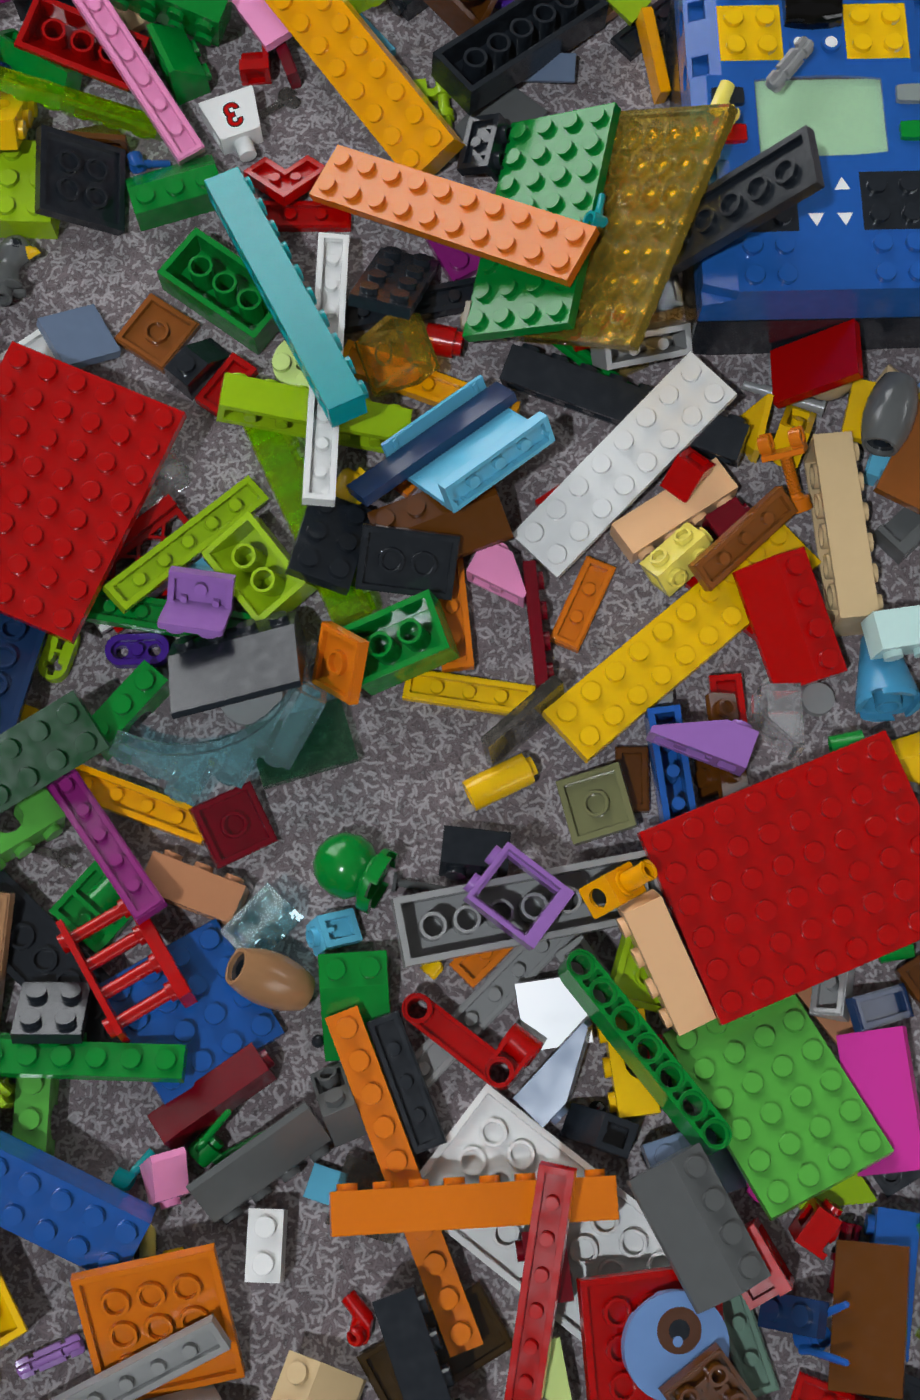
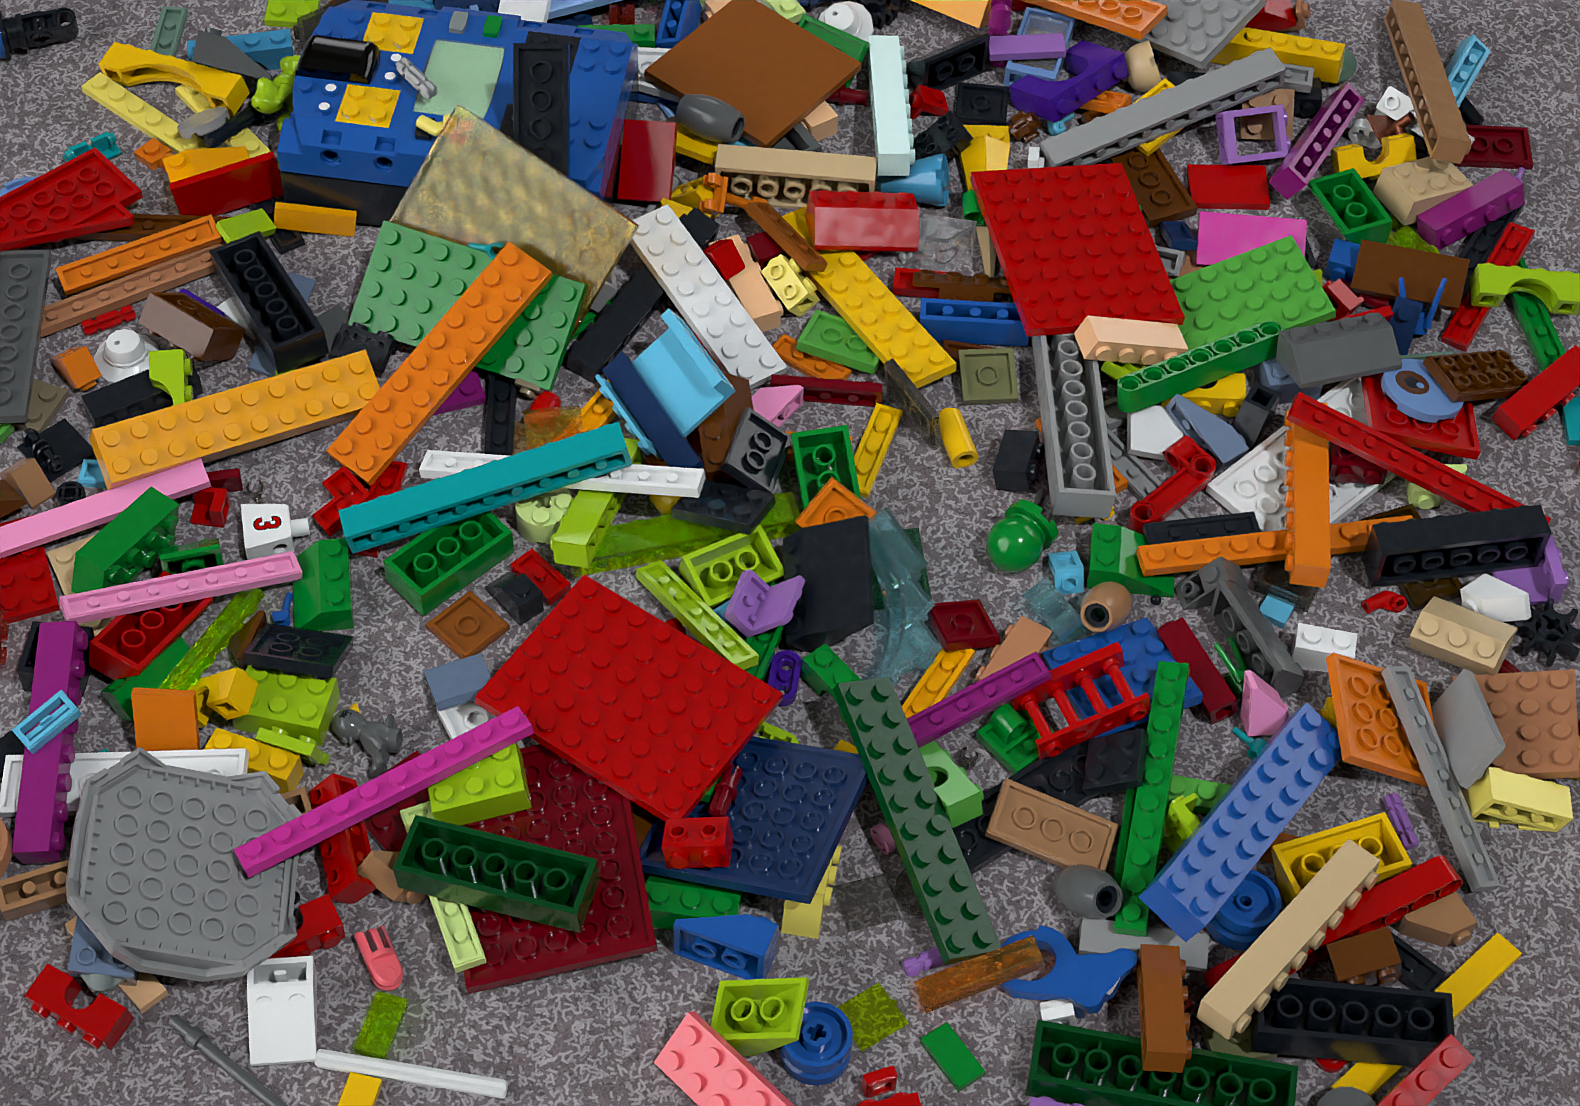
camera: 85 degrees left, 20 degrees down
(394, 282) = (487, 421): black plate -> none
(547, 916) = (1077, 385): medium lavender window -> none
(608, 622) = (836, 341): none -> bright green plate
(619, 886) = (1072, 347): light orange bracket -> none
(715, 742) = (963, 273): medium lavender slope -> none

